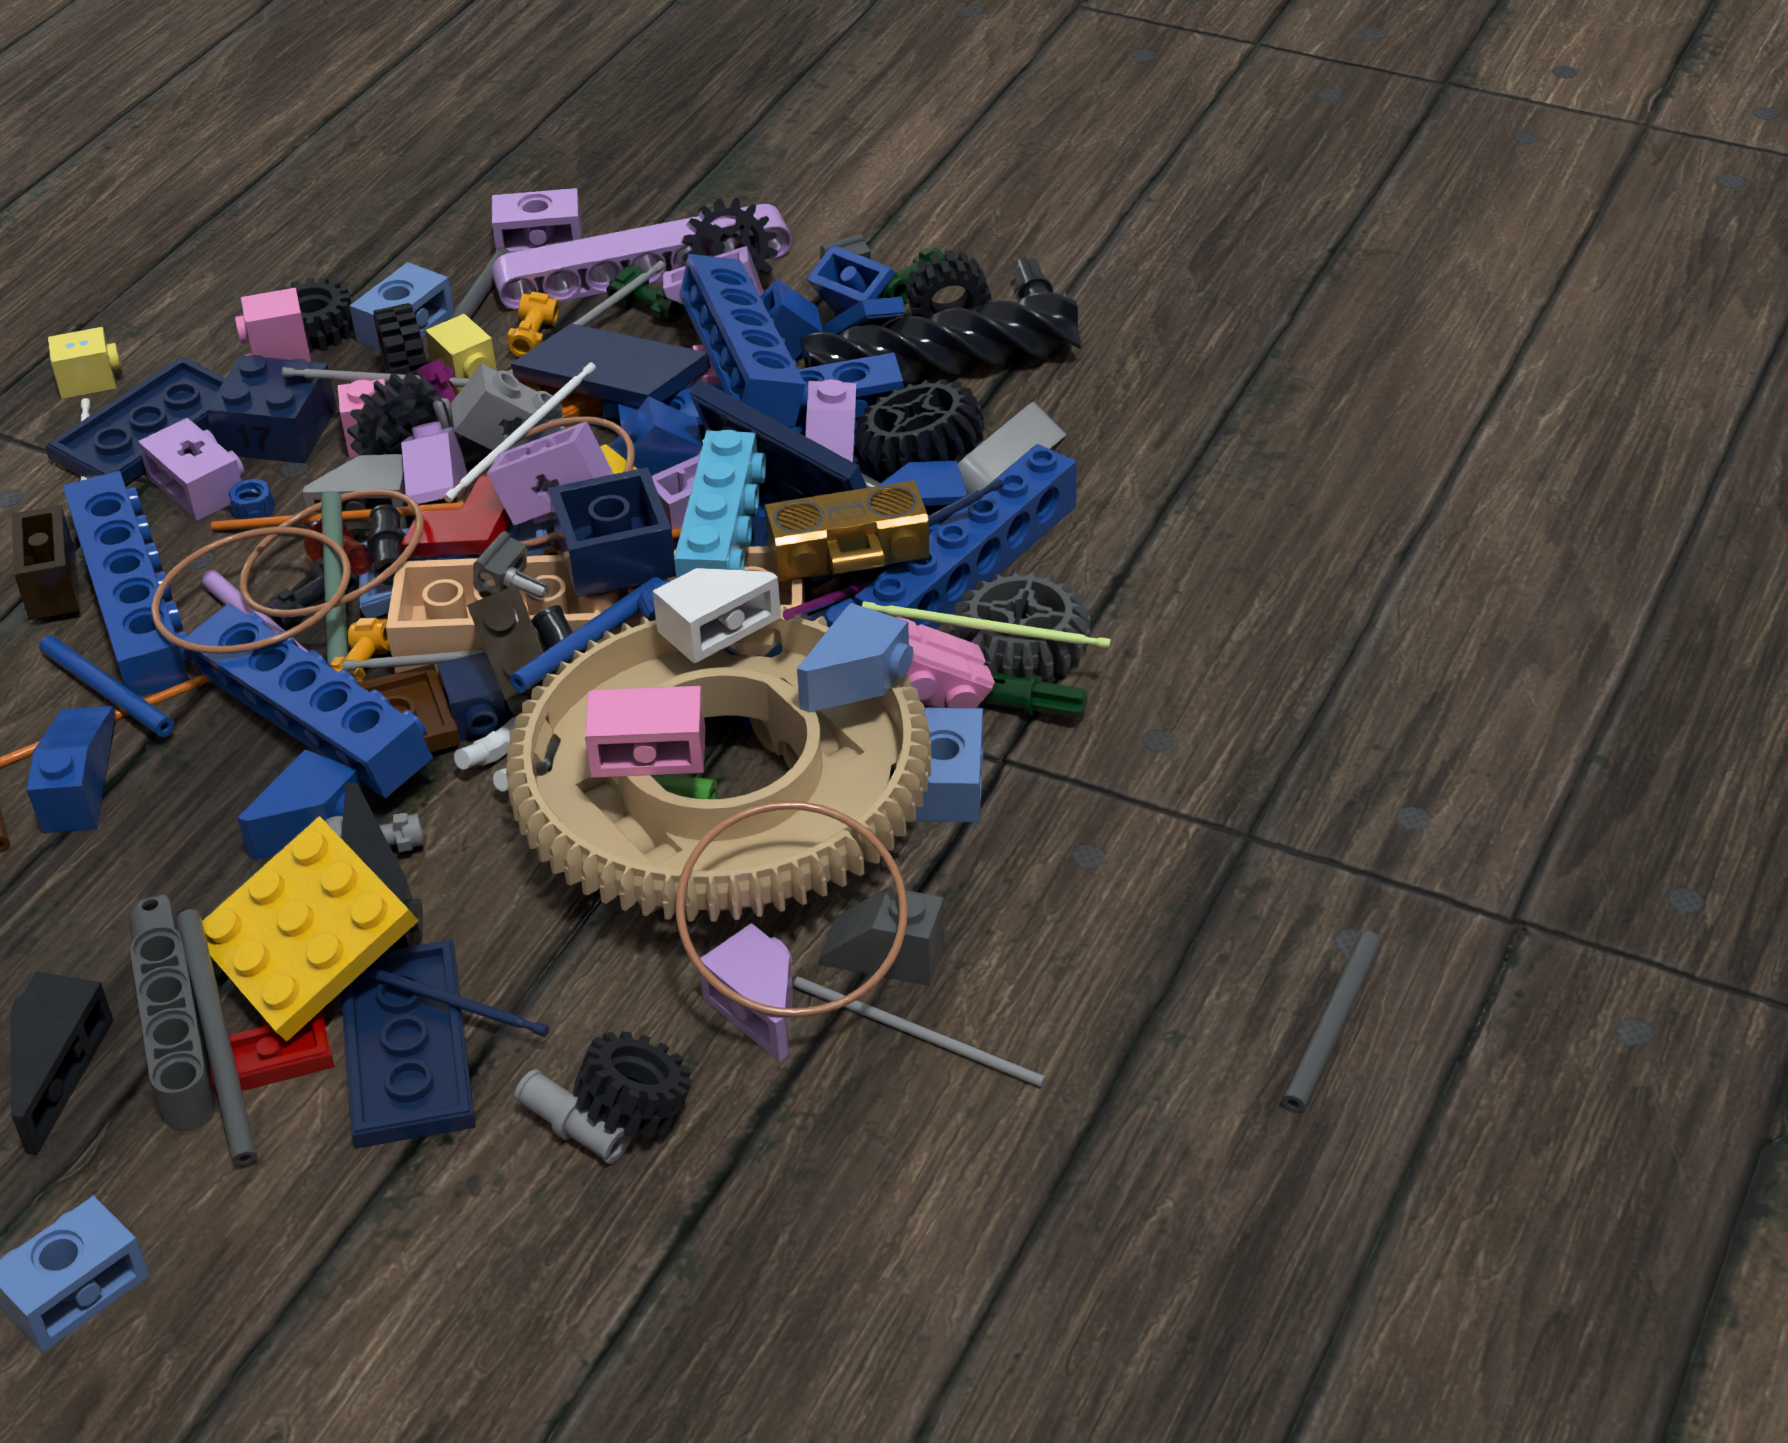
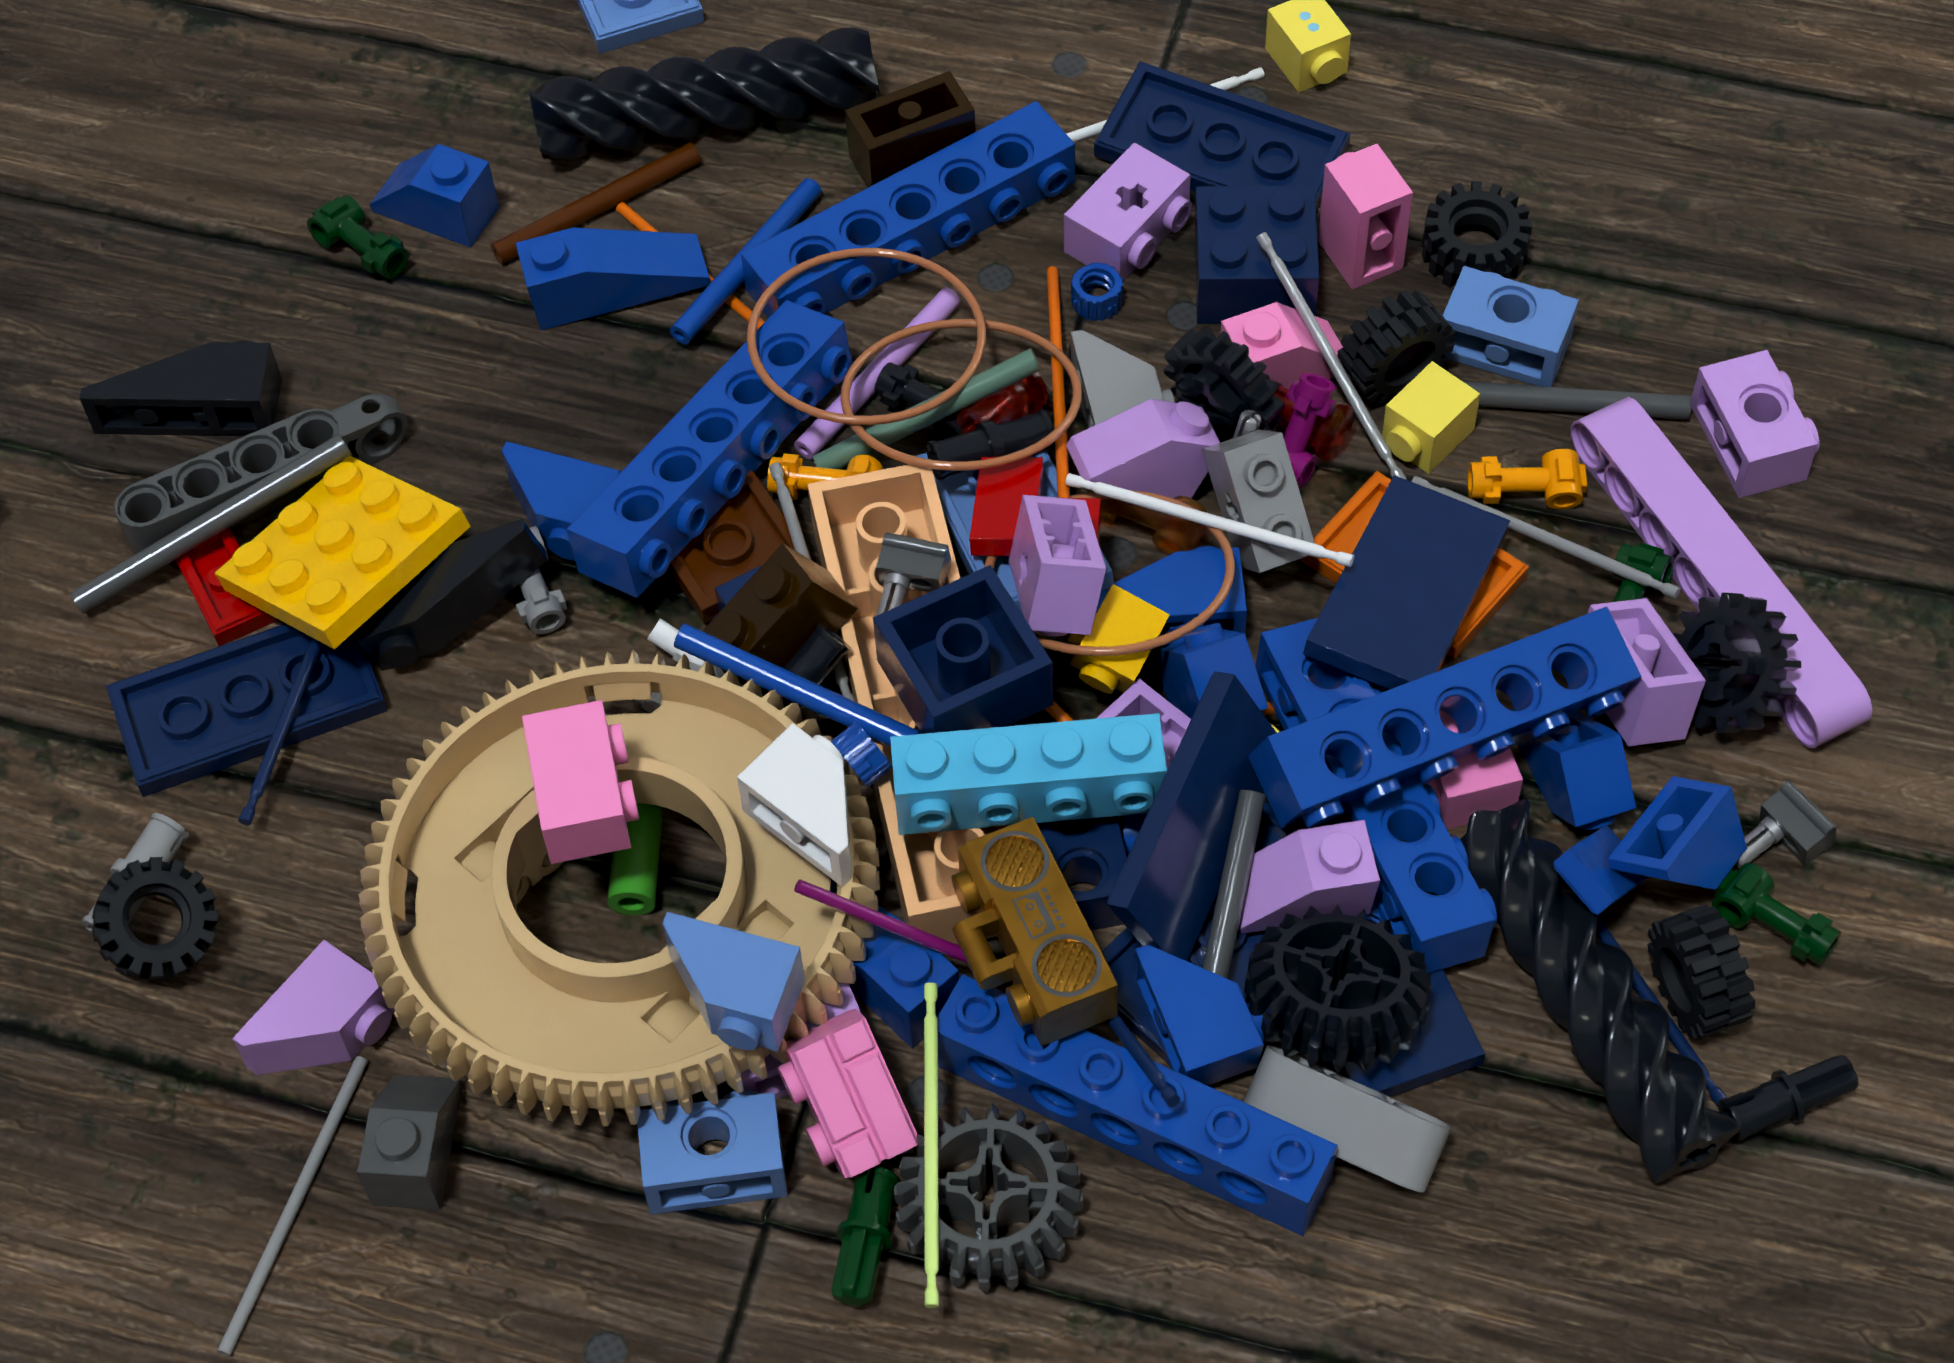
camera: 80 degrees right, 15 degrees up
(780, 1011) = (444, 1079): nougat piece -> none

